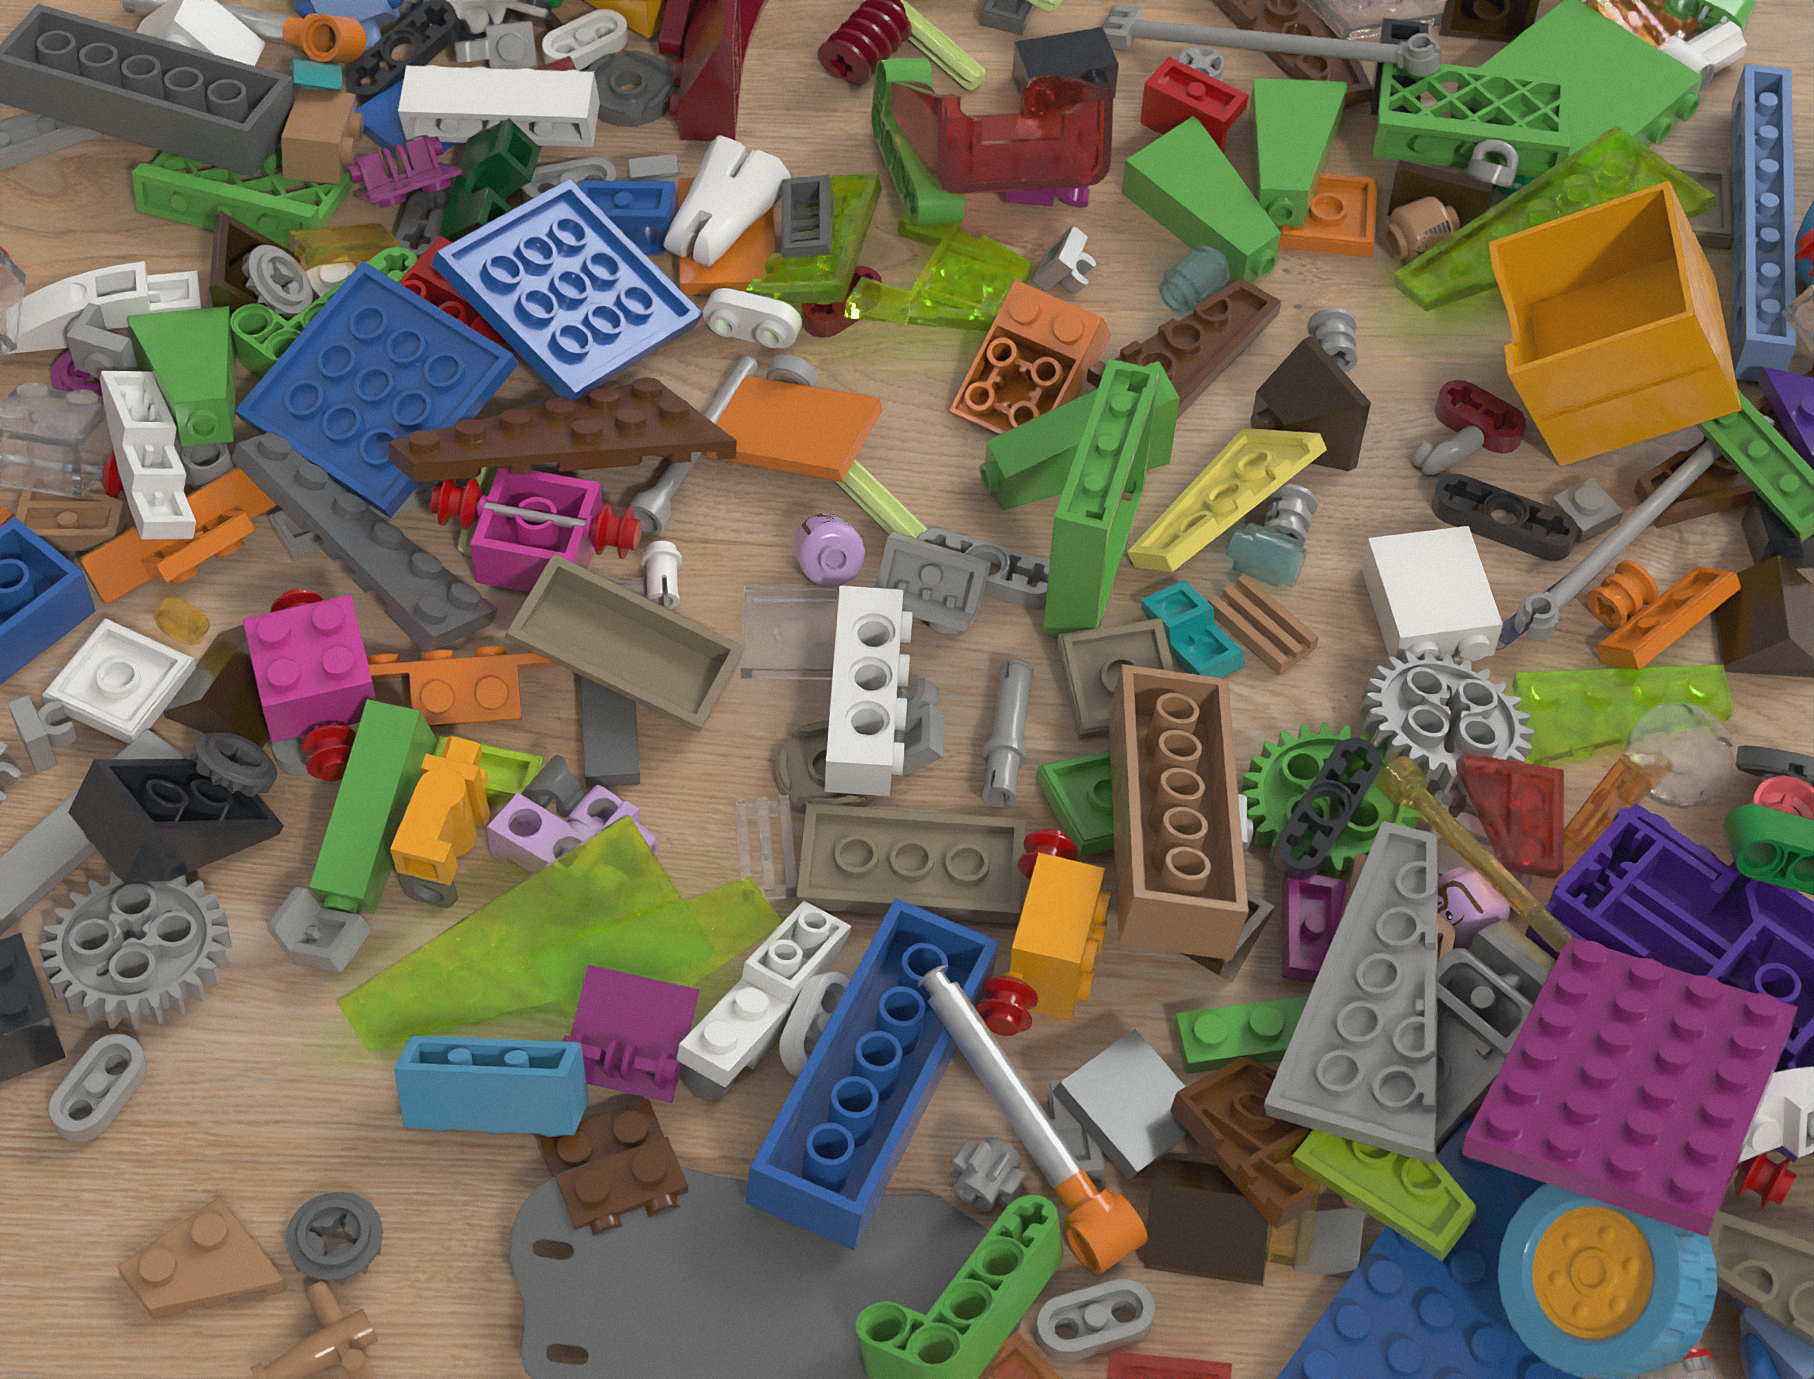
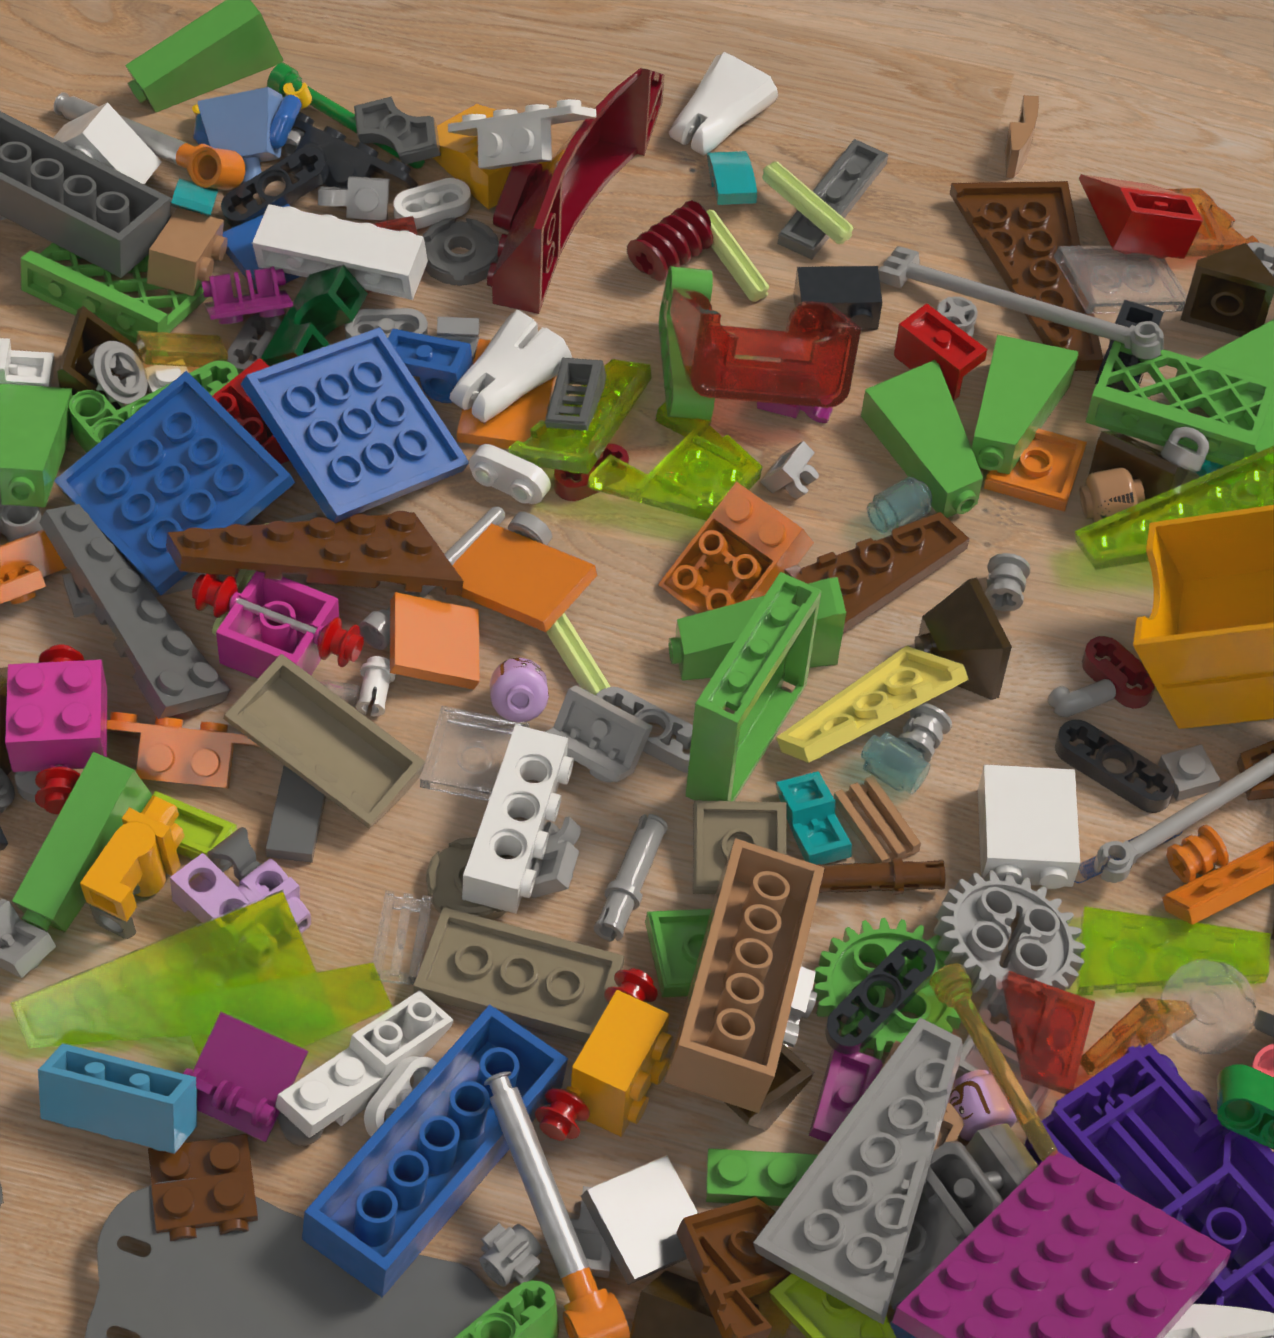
camera: 10 degrees right, 0 degrees up
(717, 513) = (434, 641): none -> orange tile
(1298, 678) = (883, 876): none -> reddish brown pin

